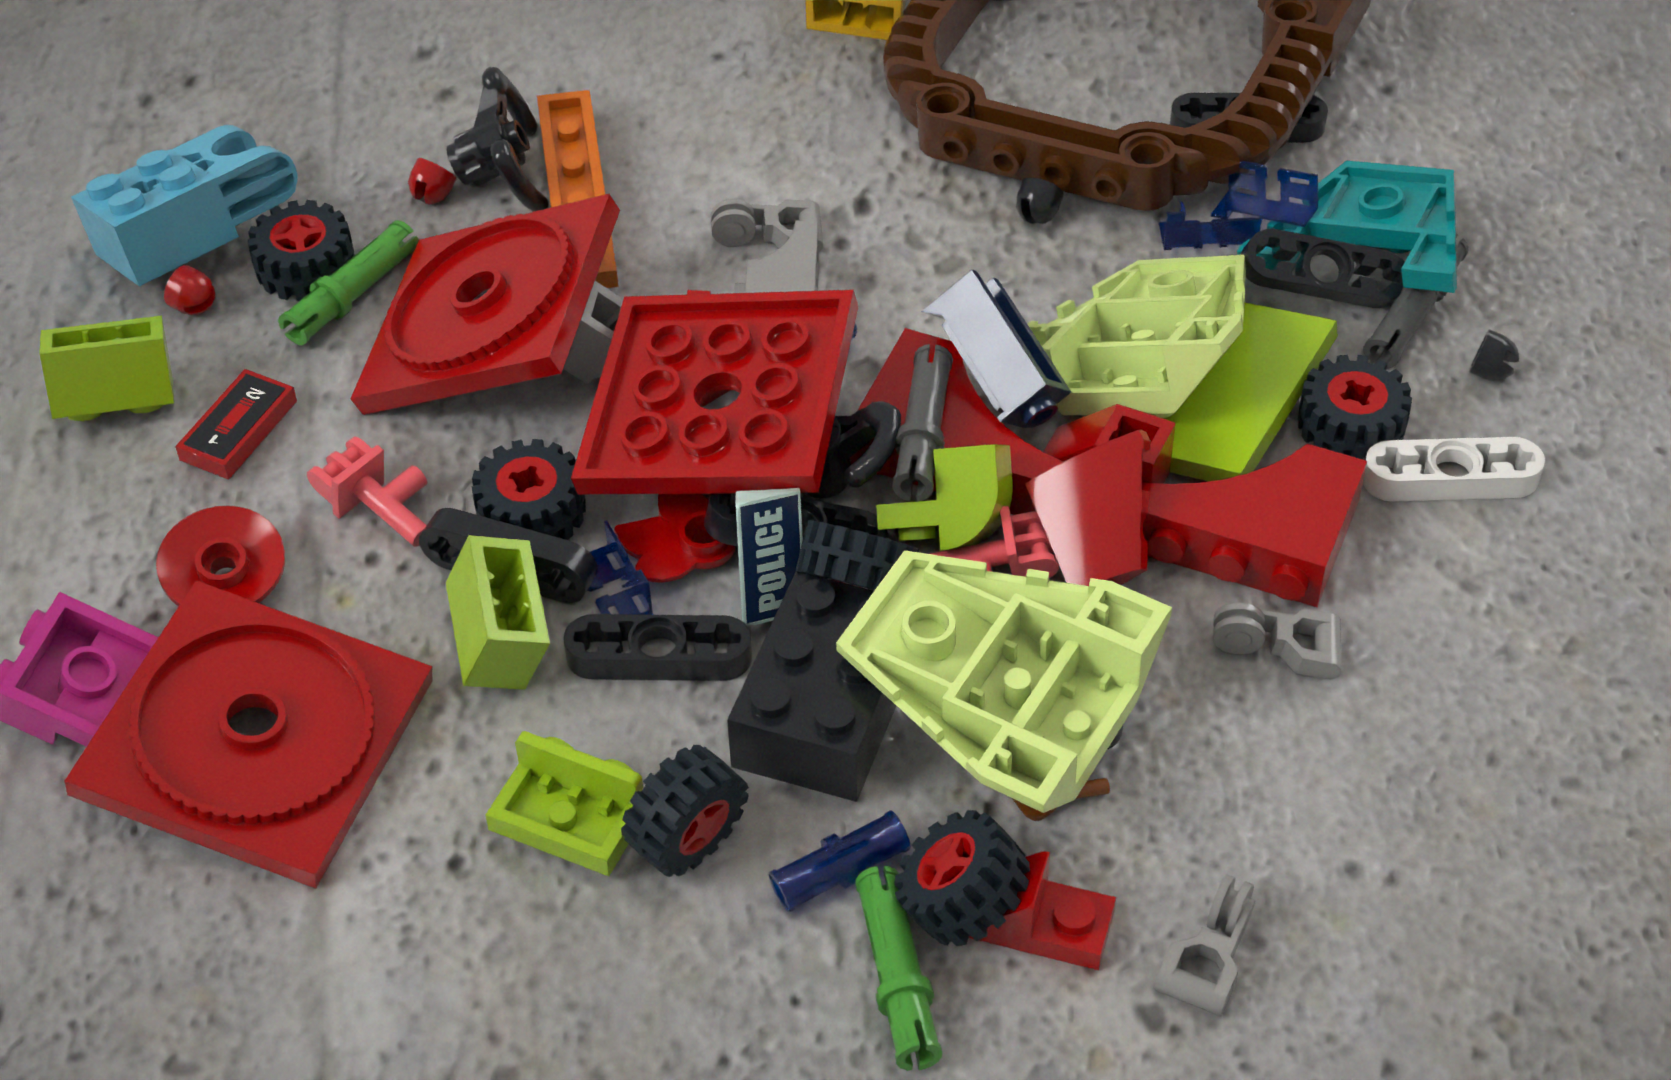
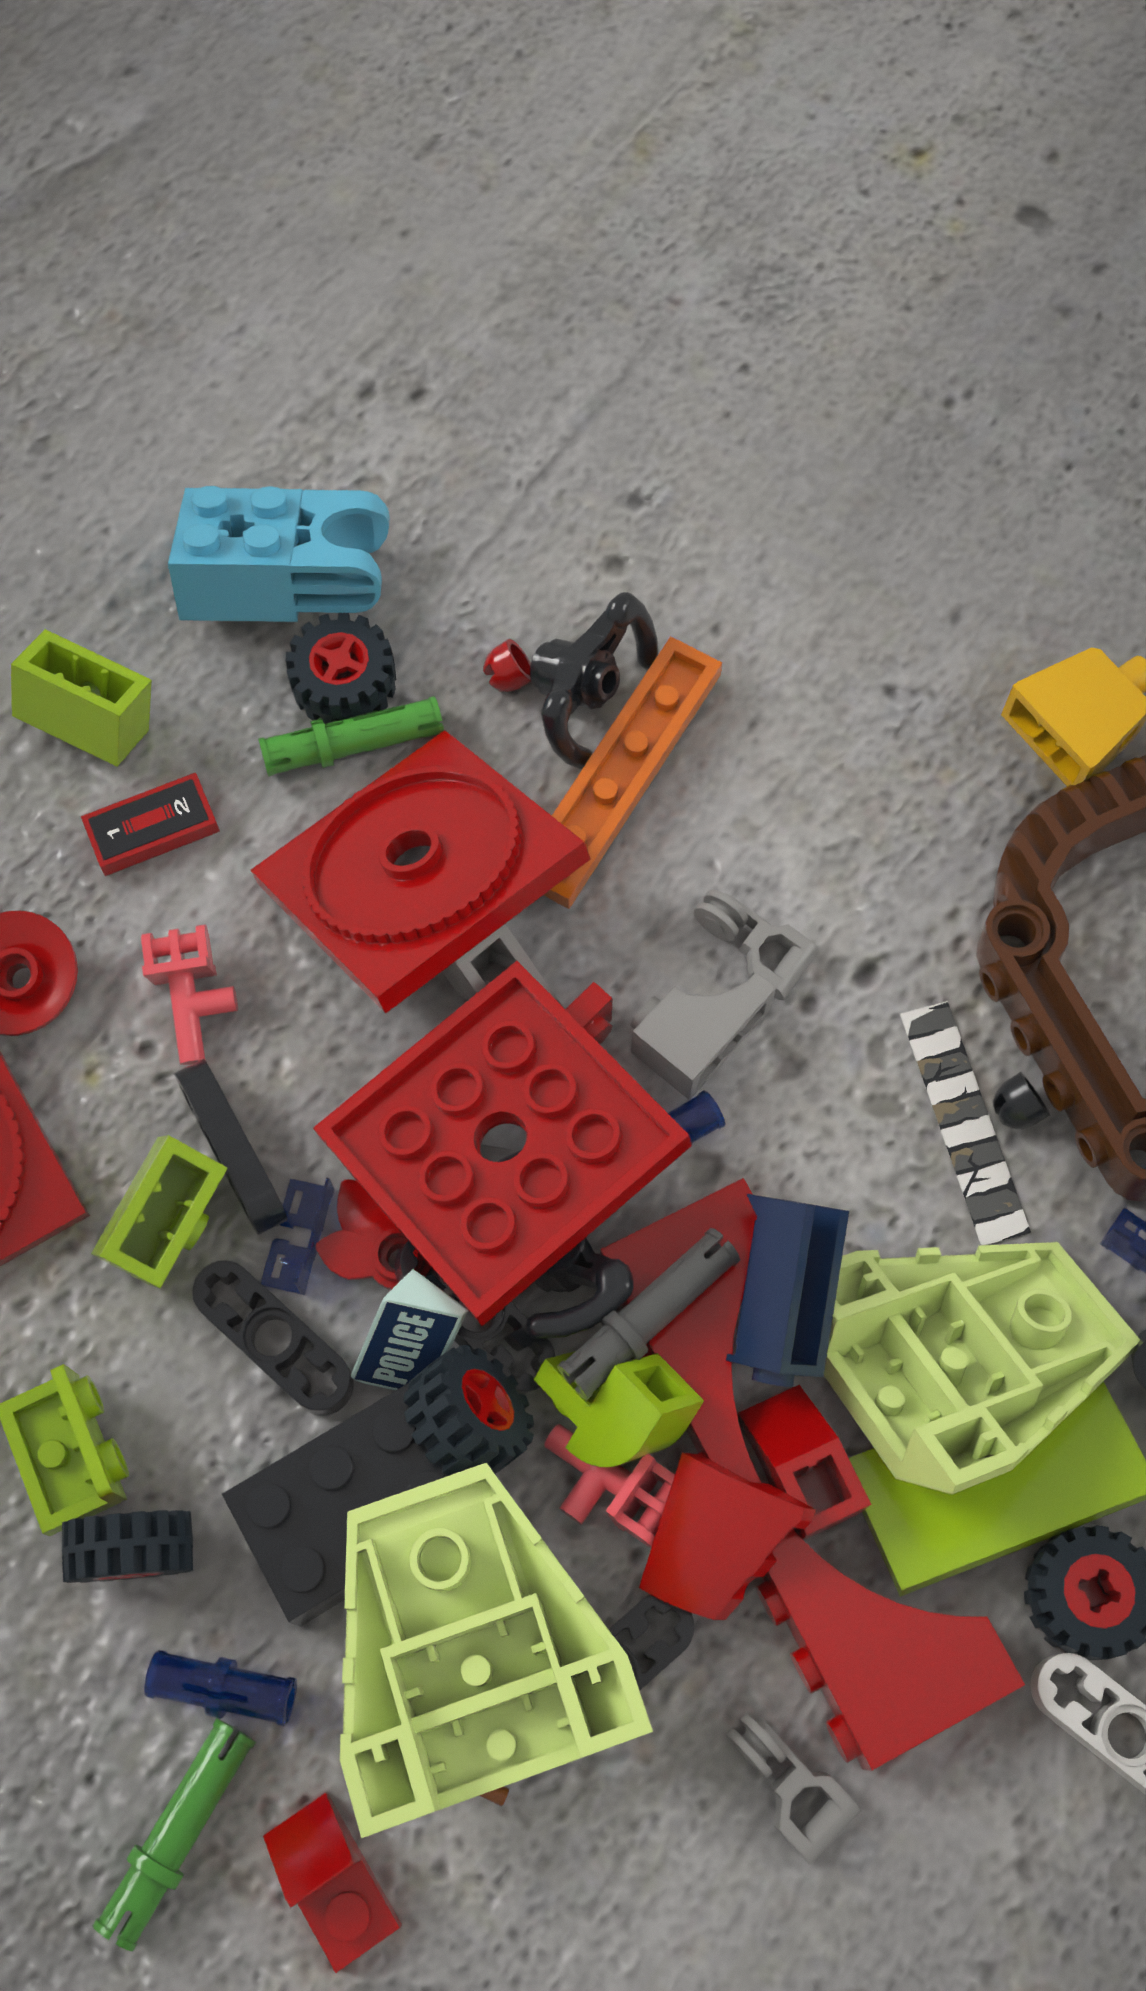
camera: 40 degrees right, 20 degrees up
(189, 291) = (221, 650): red hinge -> none
(530, 488) = (288, 1118): black wheel -> none
(962, 878) = (250, 1819): black wheel -> none
(1011, 241) = (965, 1124): none -> sticker

